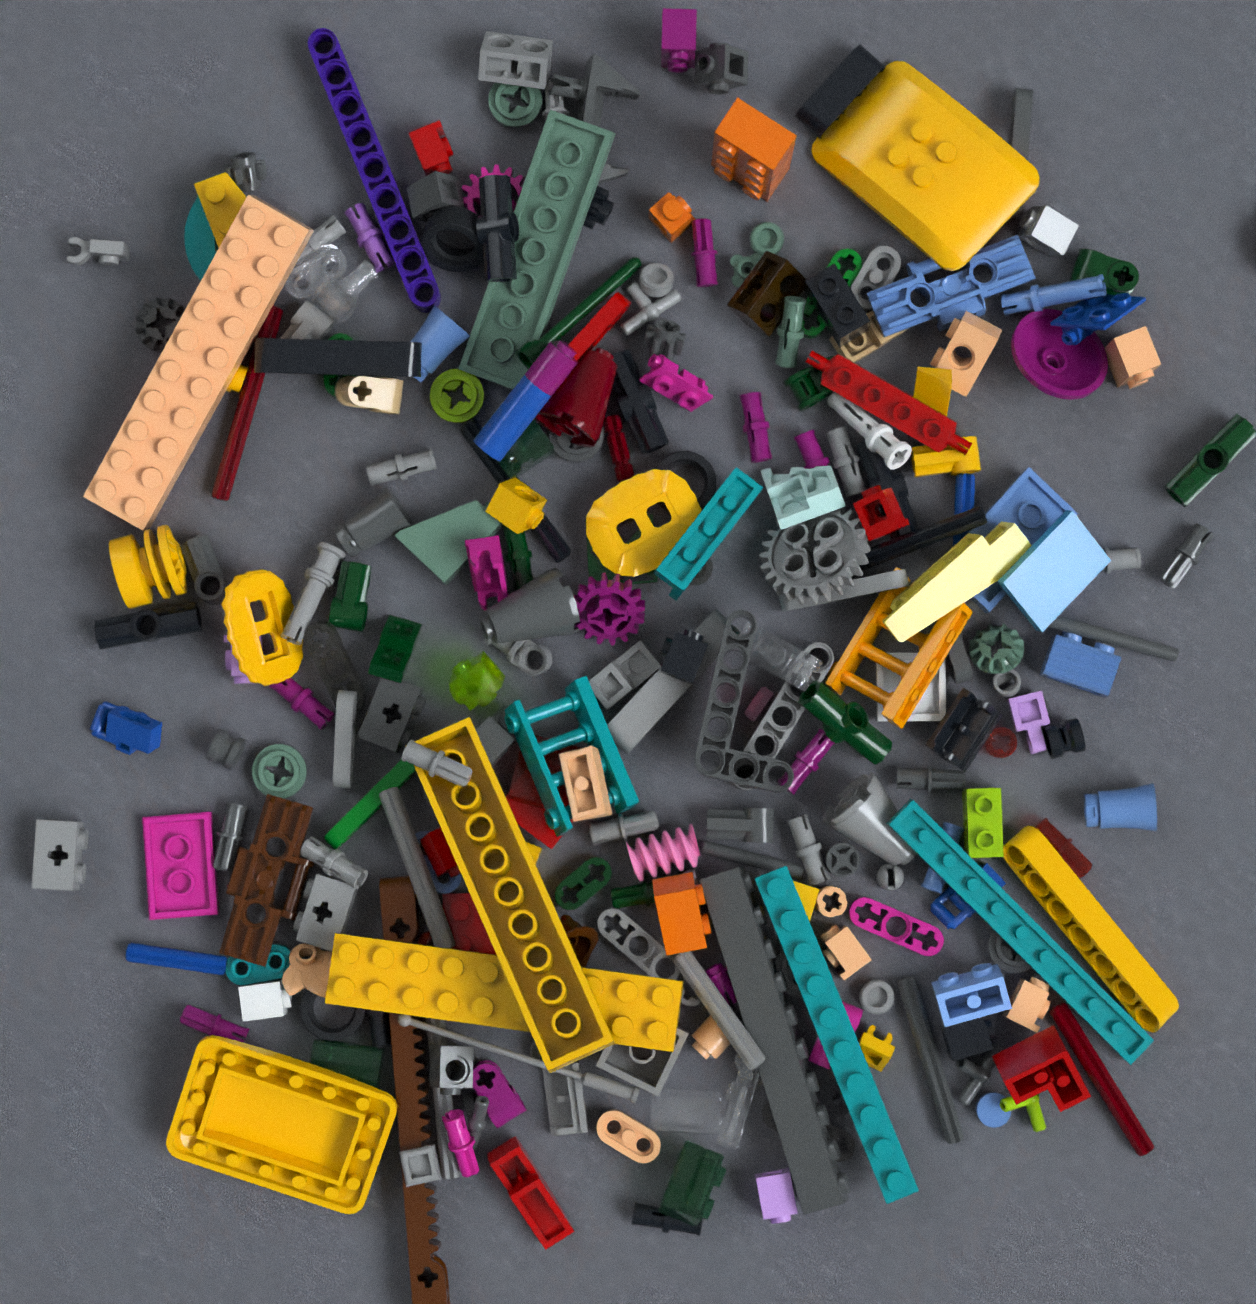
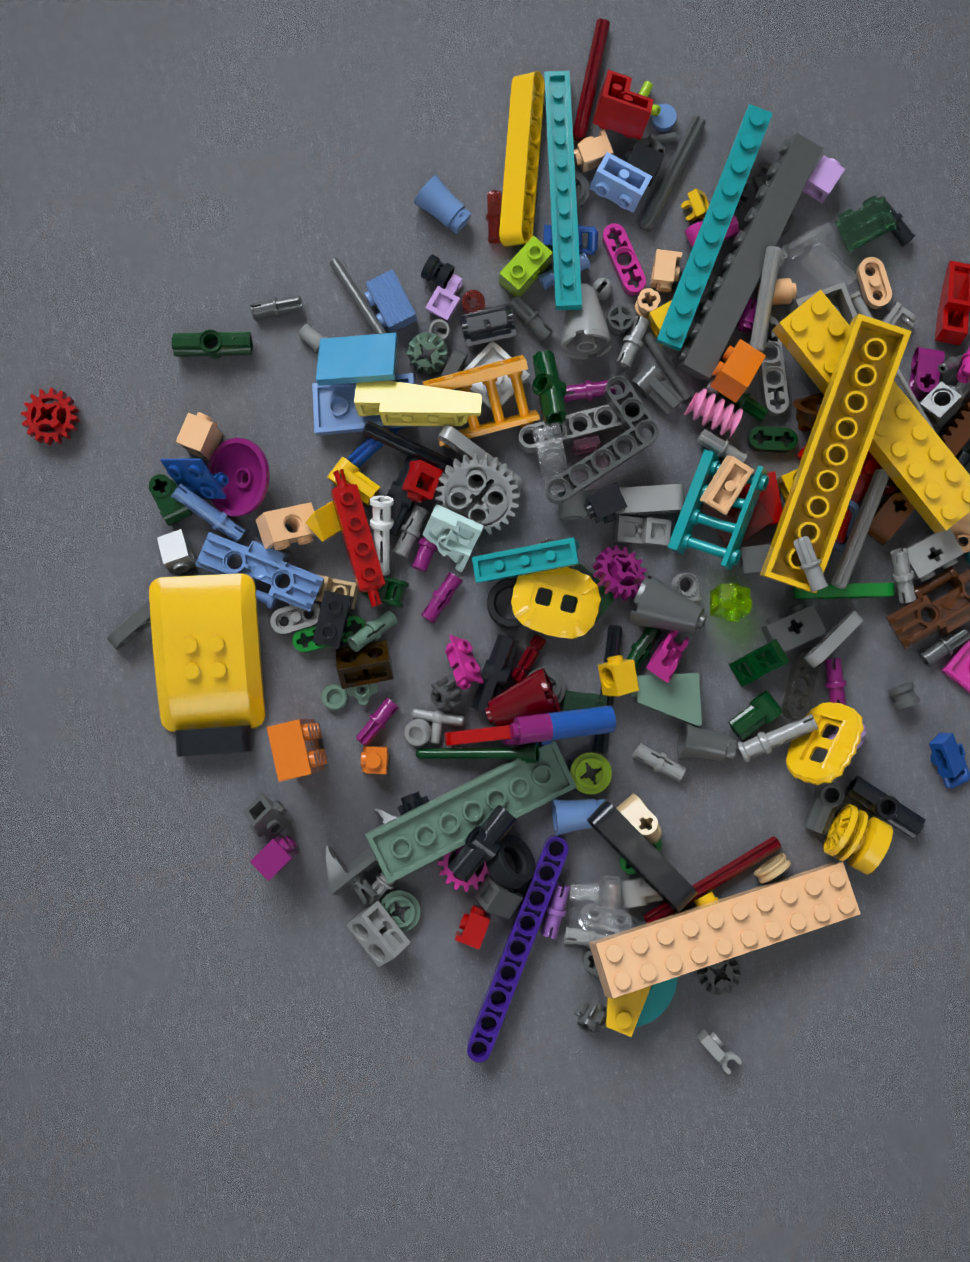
camera: 145 degrees left, 0 degrees up
(203, 466) = (772, 868): none -> tan piece
(272, 756) = (895, 659): sand green gear -> none
(876, 996) = (669, 233): light grey tile -> none

